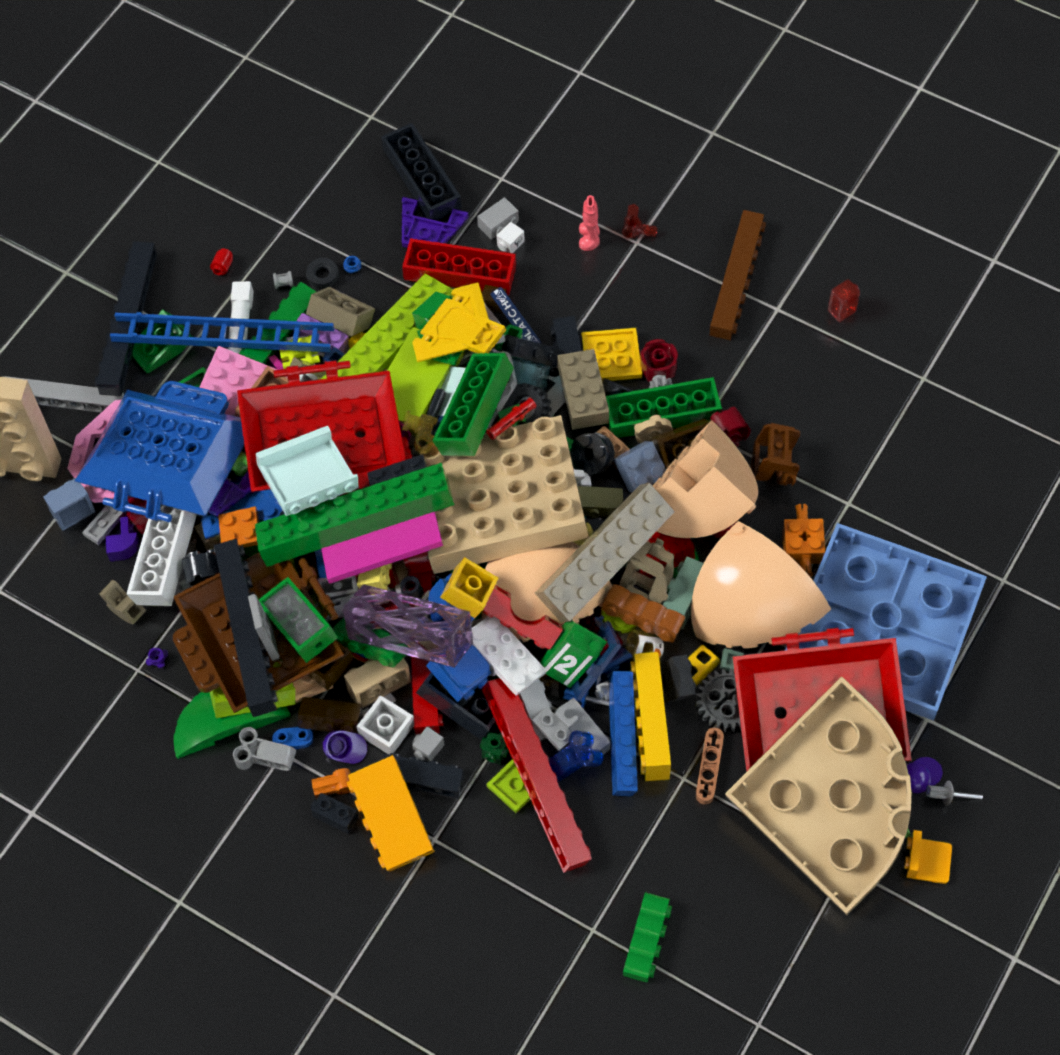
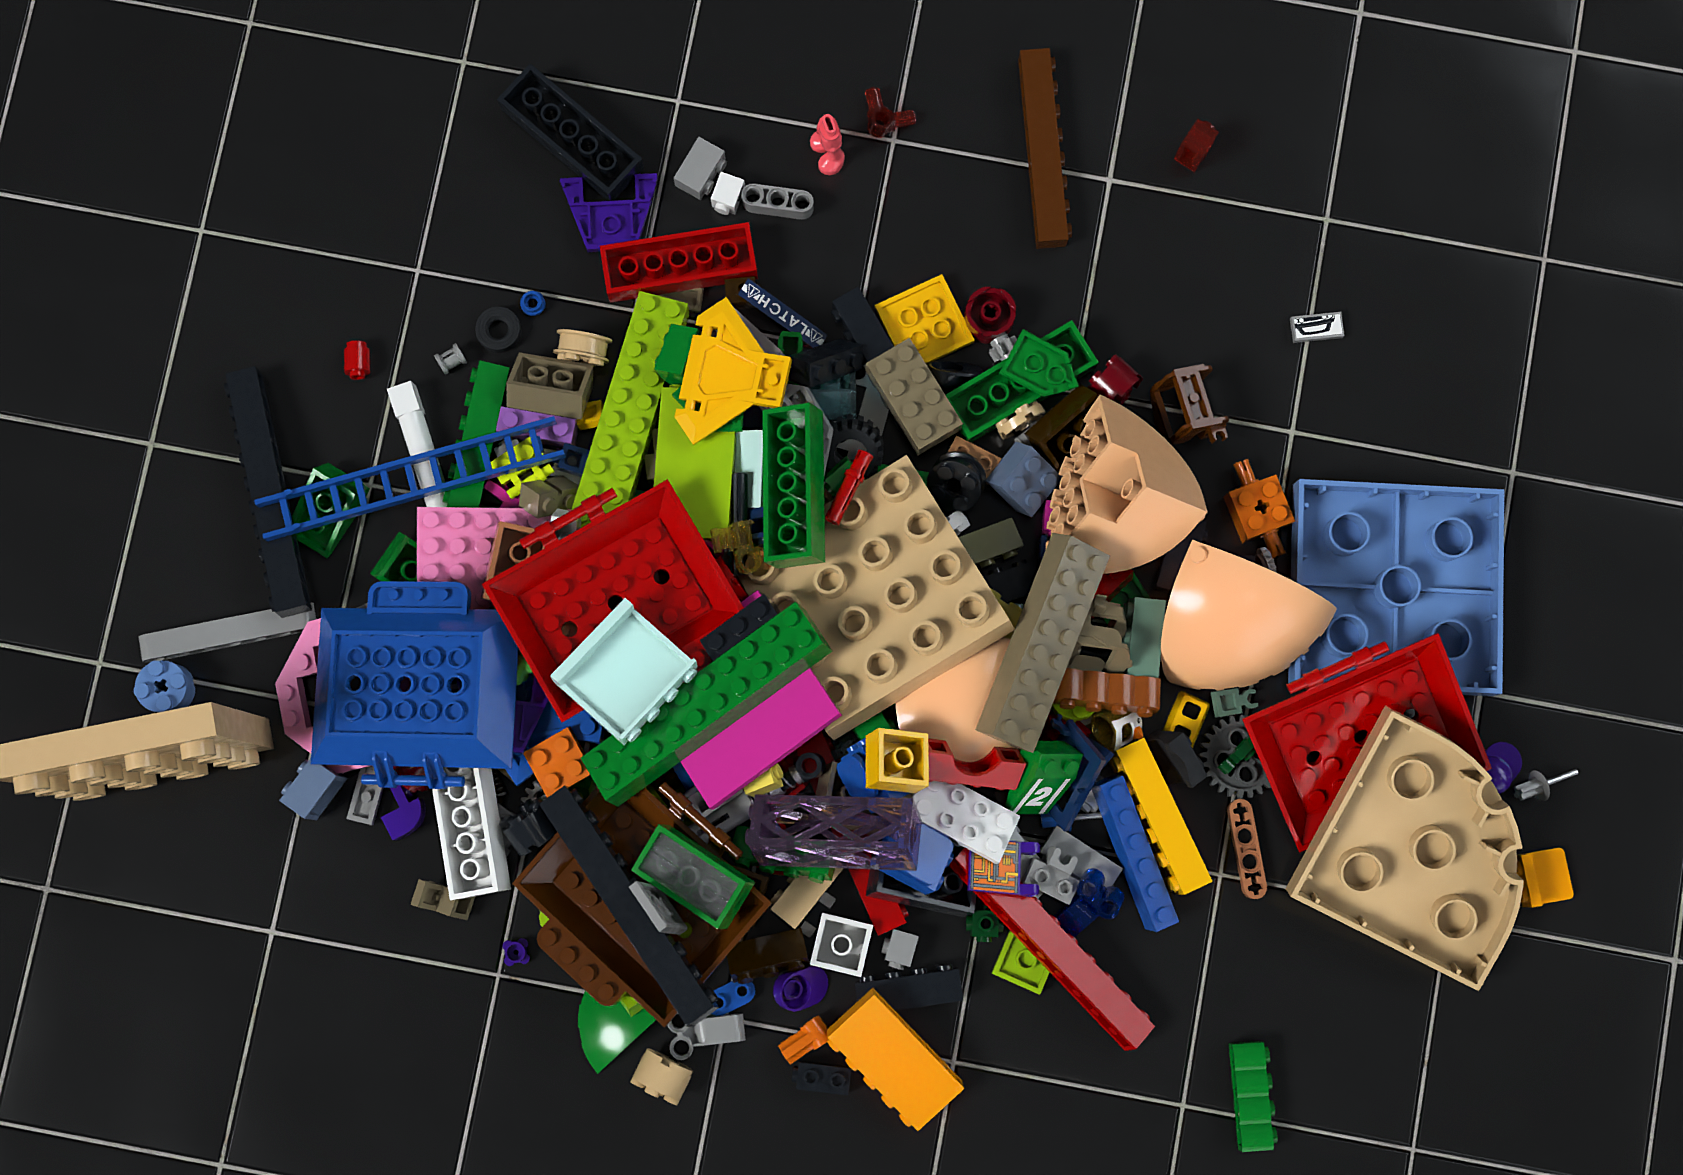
camera: 25 degrees left, 20 degrees up
(220, 767) = (662, 1076): none -> tan brick
(373, 294) = (582, 346): none -> tan wheel
(520, 706) = (1004, 876): none -> flag
(542, 252) = (768, 193): none -> light grey beam
(678, 396) = (1039, 366): none -> green tile
(725, 689) = (1244, 750): none -> dark green plate
(890, 442) = (1317, 327): none -> tile

